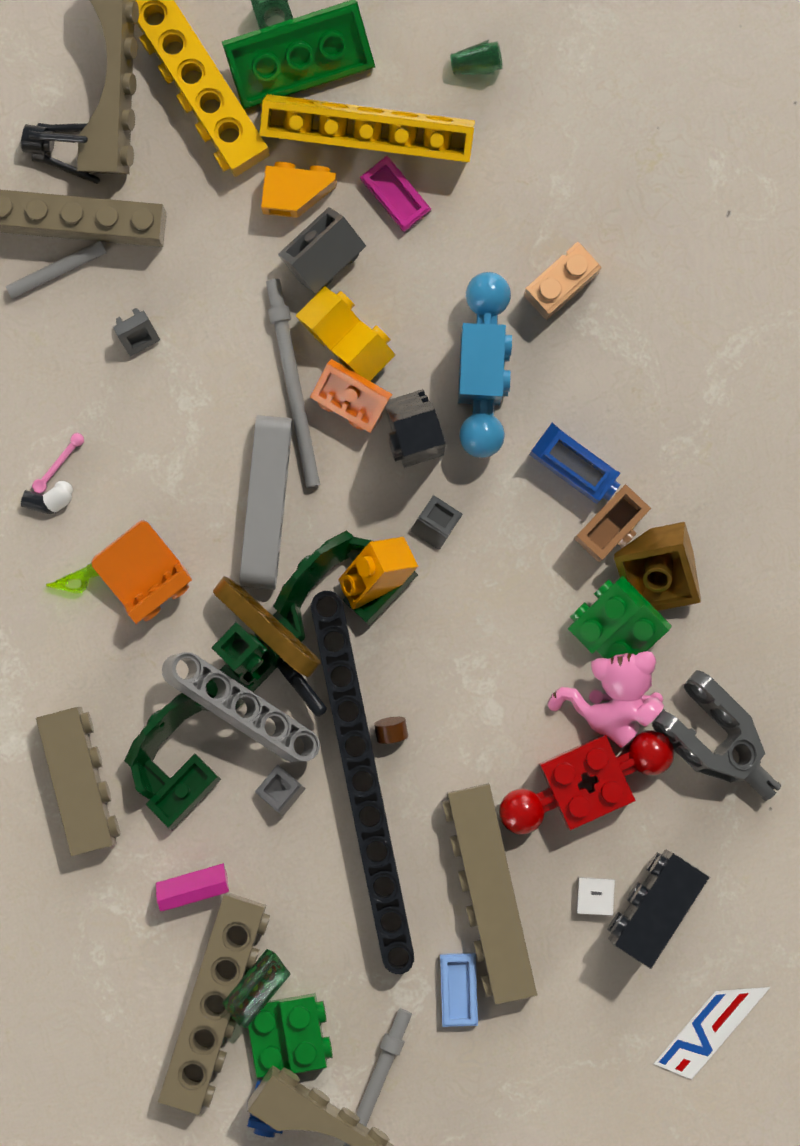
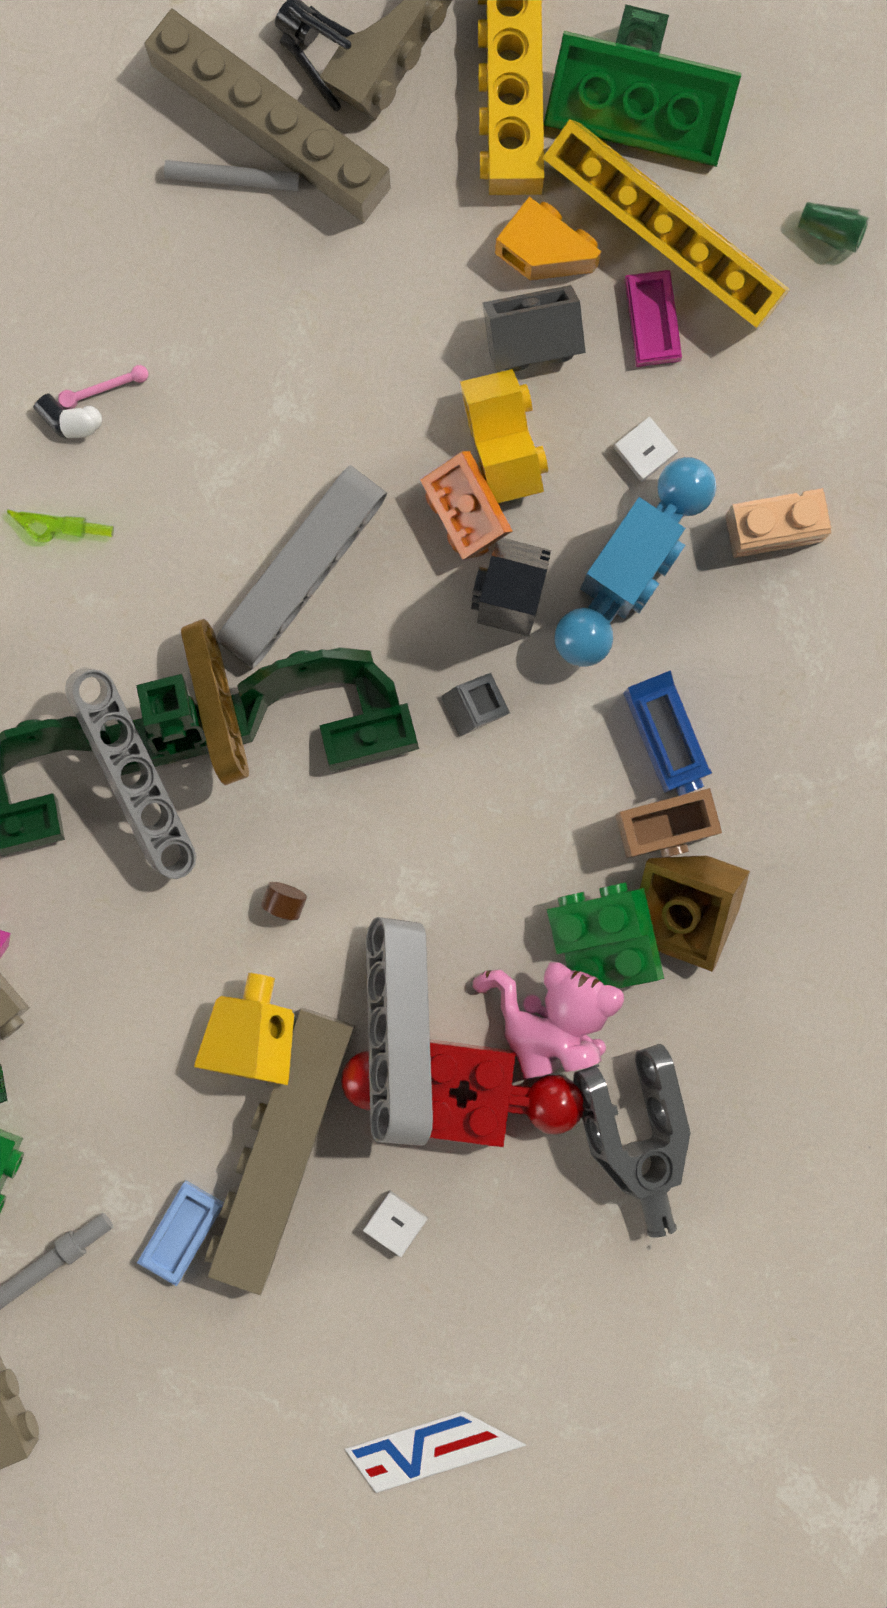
camera: 30 degrees right, 0 degrees up
(136, 332) = (275, 295): dark grey tile -> none
(141, 571) = (118, 557): orange bracket -> none
(279, 316) = (443, 374): light grey bar -> none
(280, 790) = (121, 891): flat silver tile -> none
(303, 689) = (214, 798): black bar -> none
(359, 799) = (199, 954): black beam -> none
(377, 571) = (376, 715): light orange slope -> none
(424, 831) = (249, 1035): none -> yellow torso
(444, 284) = (645, 449): none -> white tile
(521, 767) = (398, 1032): none -> light grey beam
(656, 907) = (453, 1281): black piece -> none

